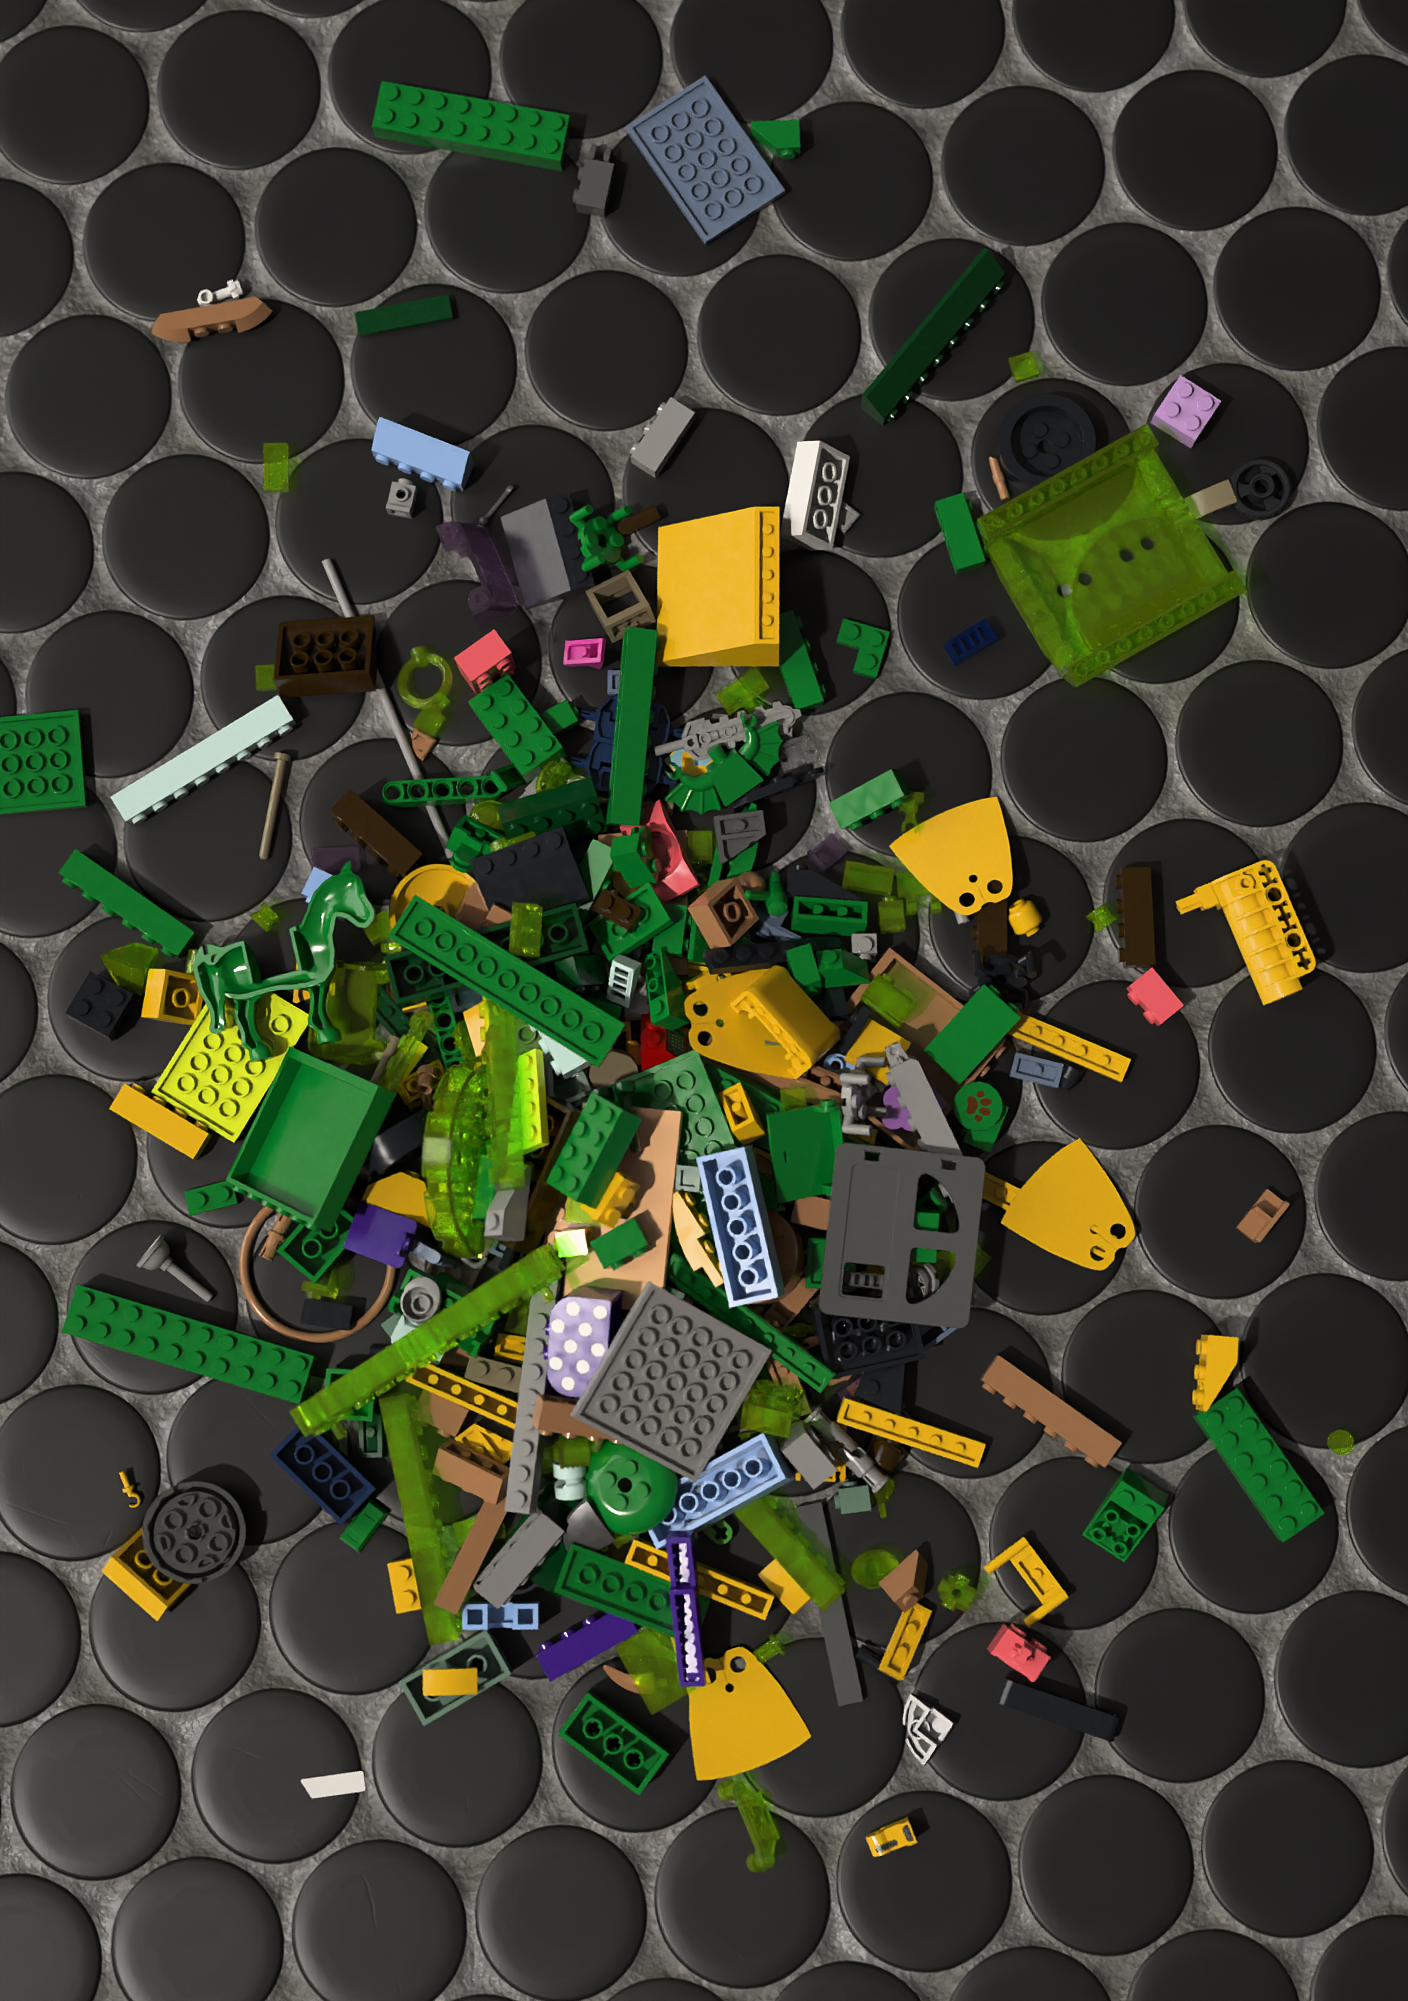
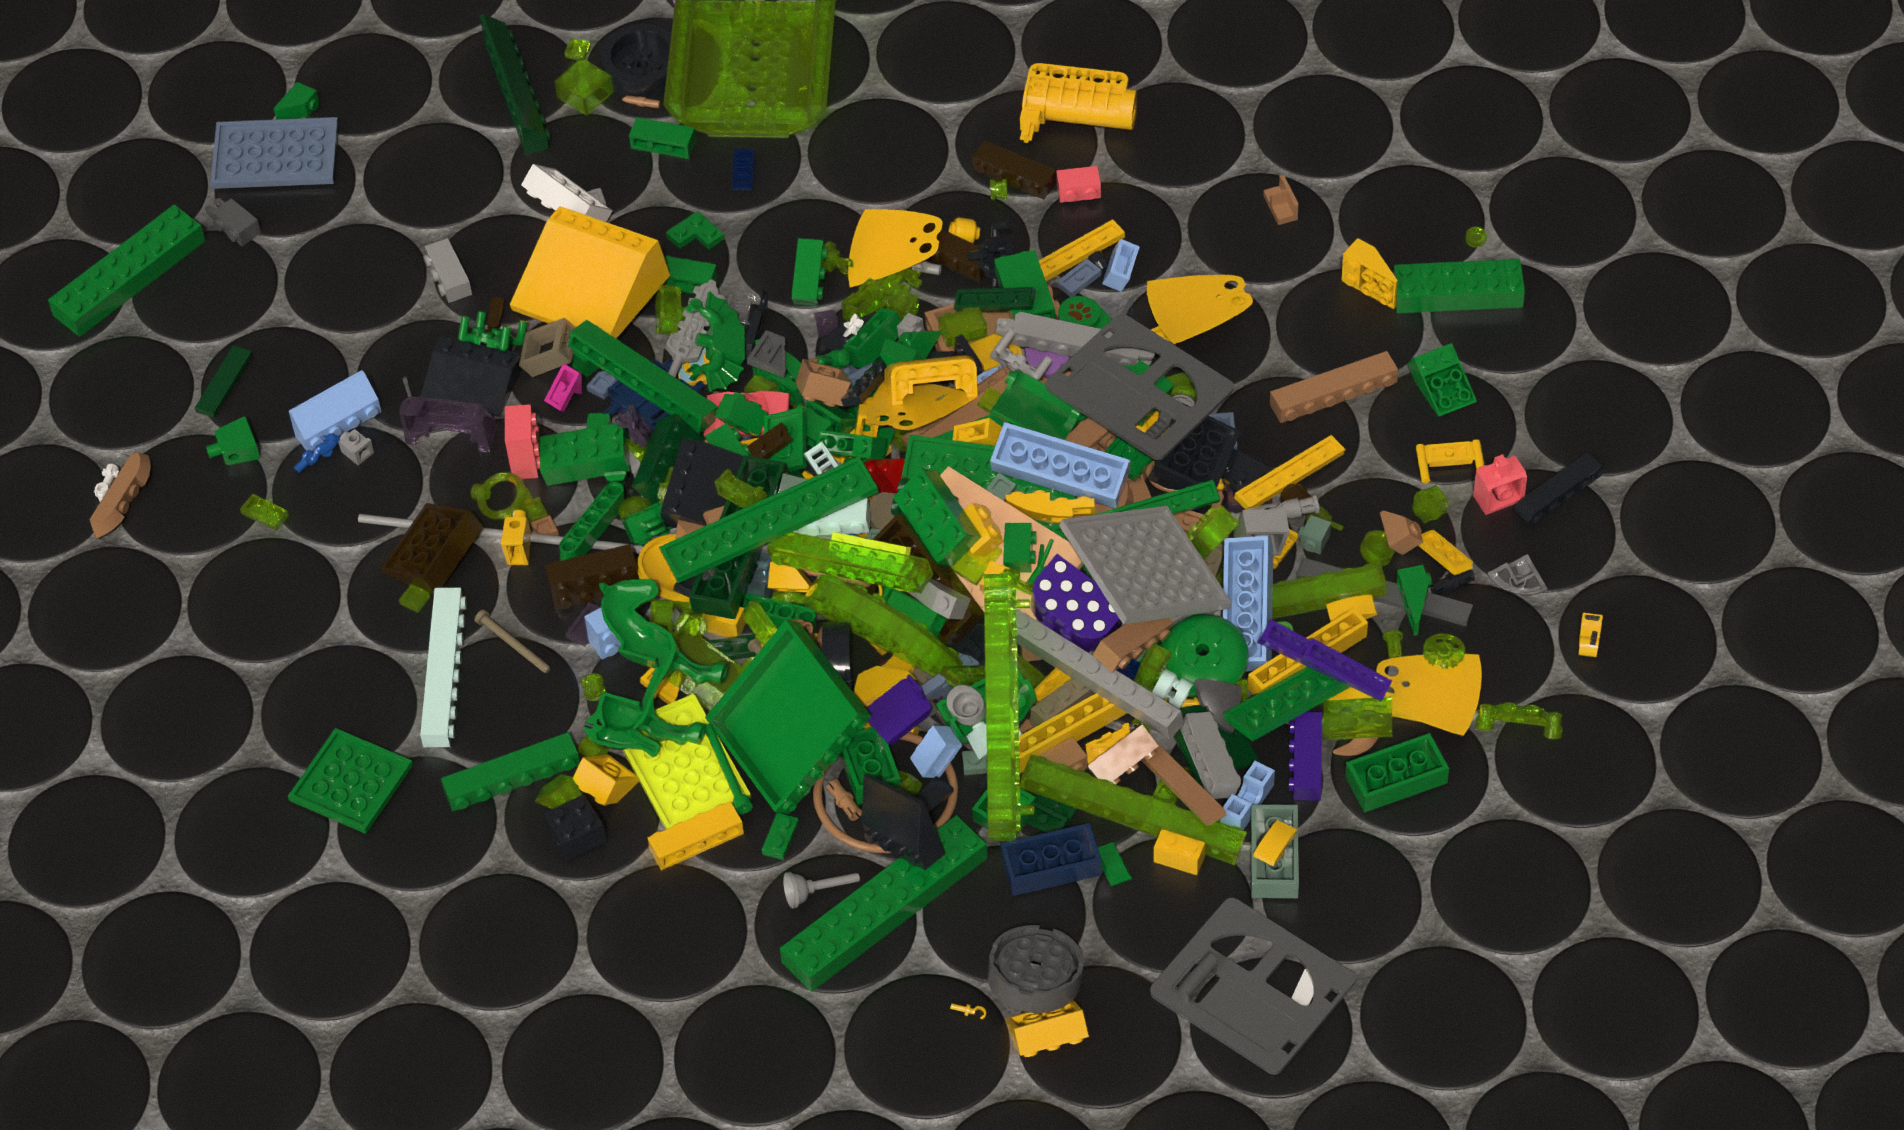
camera: 60 degrees left, 30 degrees down
(216, 1142) = (740, 802): none -> green piece
(251, 1323) = (899, 823): none -> black slope
(279, 1737) = (1242, 1006): none -> dark grey door
(335, 381) = (234, 443): none -> green torso
(368, 1293) = (935, 751): none -> light blue brick
(371, 733) = (516, 539): none -> yellow torso
(381, 471) = (323, 449): none -> blue animal
(461, 1272) = (963, 675): none -> clear neon green plate
(565, 768) = (639, 429): none -> clear purple plate
(570, 1265) = (1020, 585): none -> clear neon green plate
(617, 1279) = (1041, 561): none -> green plant
(791, 1703) = (1443, 650): none -> clear neon green wheel
(825, 890) = (853, 326): none -> white plant
(835, 1641) = (1413, 588): none -> green slope
(935, 1015) = (995, 299): none -> dark green tile
(976, 409) = (584, 86): none -> clear neon green brick
(1072, 1106) = (1120, 265): none -> light blue brick

